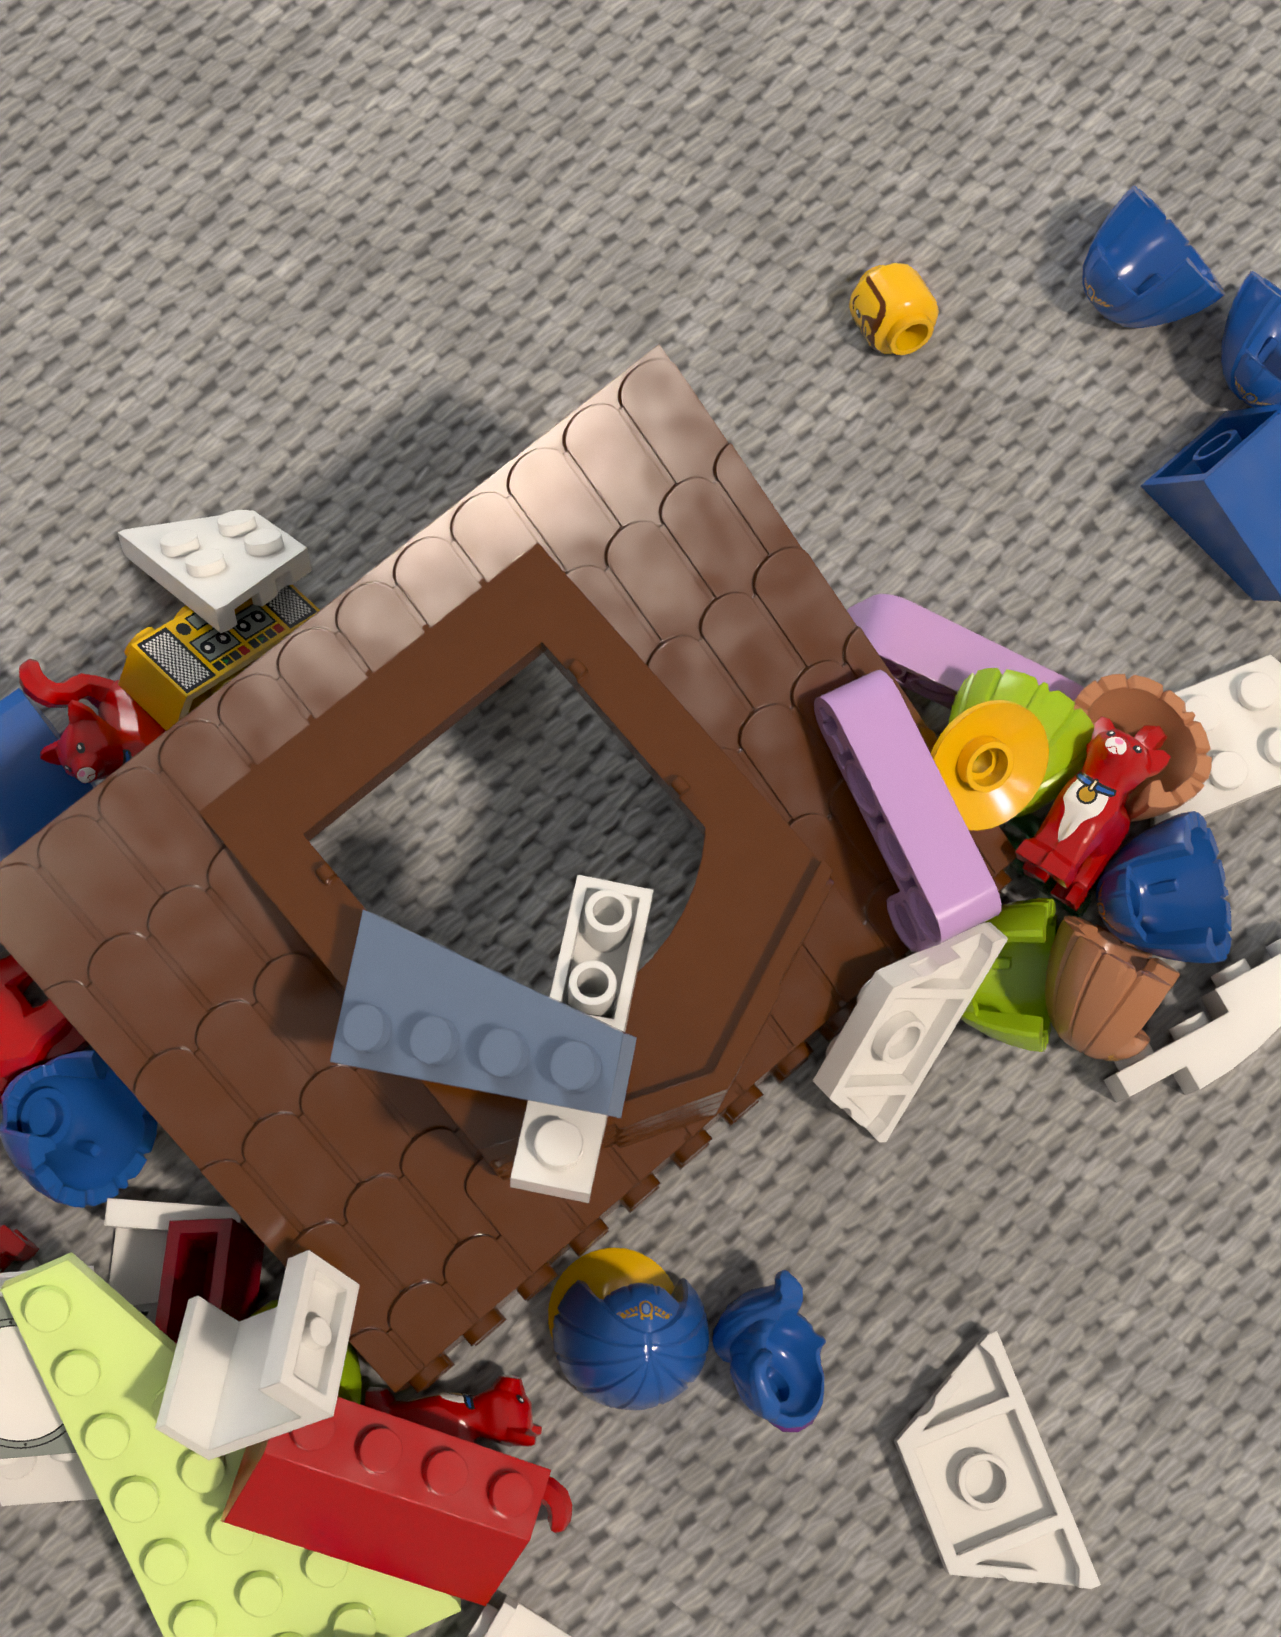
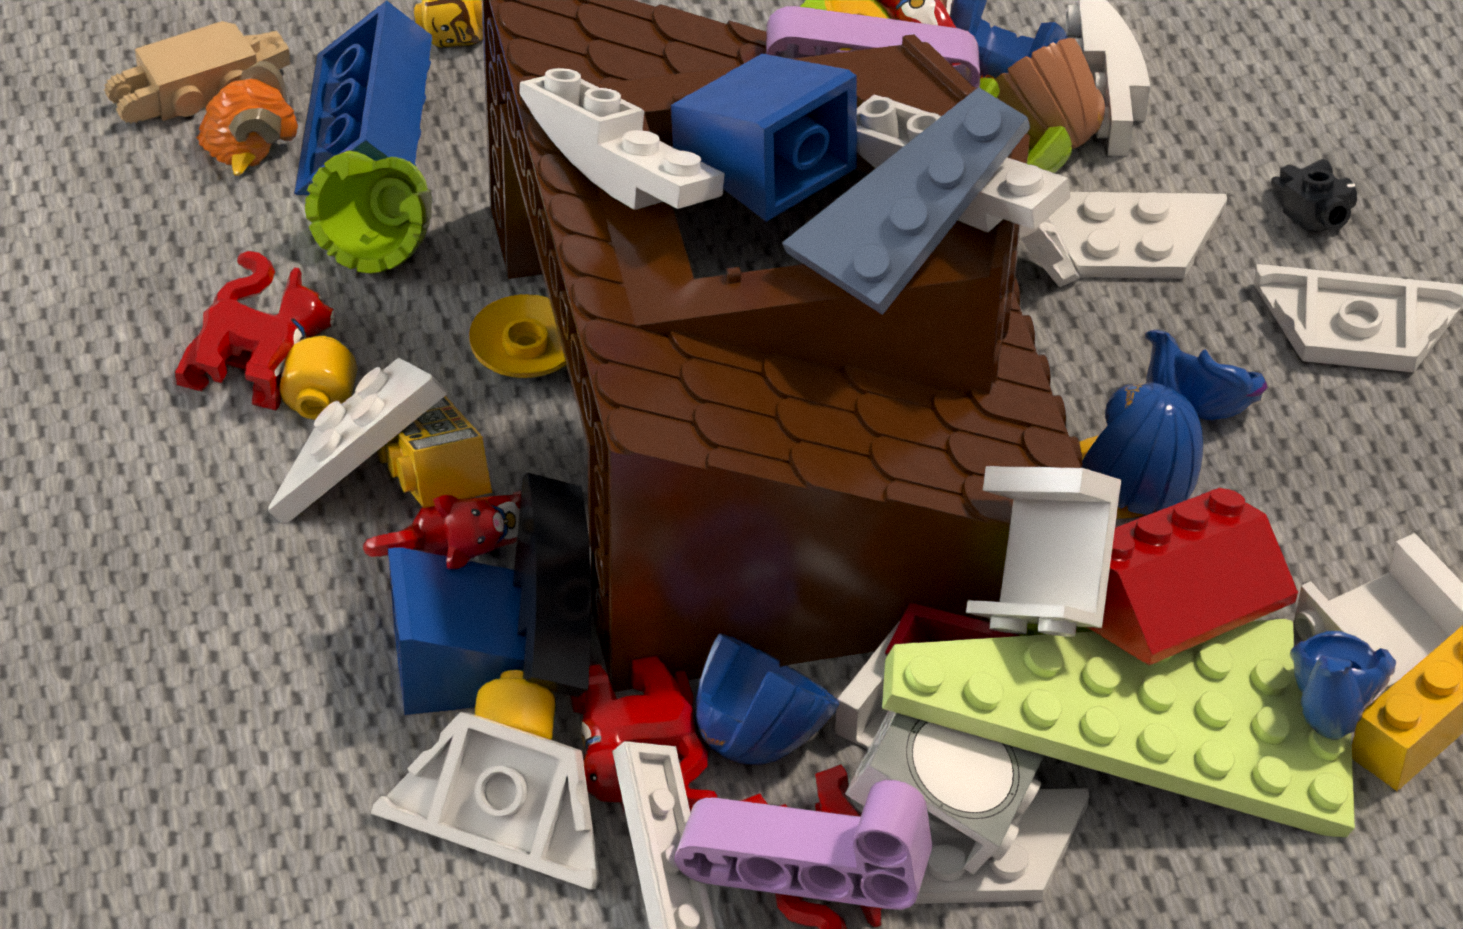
camera: 60 degrees left, 30 degrees down
(305, 478) = (316, 375): none -> yellow head
(317, 386) = (251, 337): none -> red animal
(418, 655) = (609, 145): none -> white slope
(519, 798) = (772, 129): none -> blue slope
(529, 389) = (368, 210): none -> lime hair
(614, 209) = (248, 118): none -> orange hair
(657, 121) = (189, 70): none -> tan hinge
(707, 302) = (367, 93): none -> blue slope
(986, 1160) = (1136, 232): none -> white wing
(1146, 1346) = (1315, 196): none -> black piece

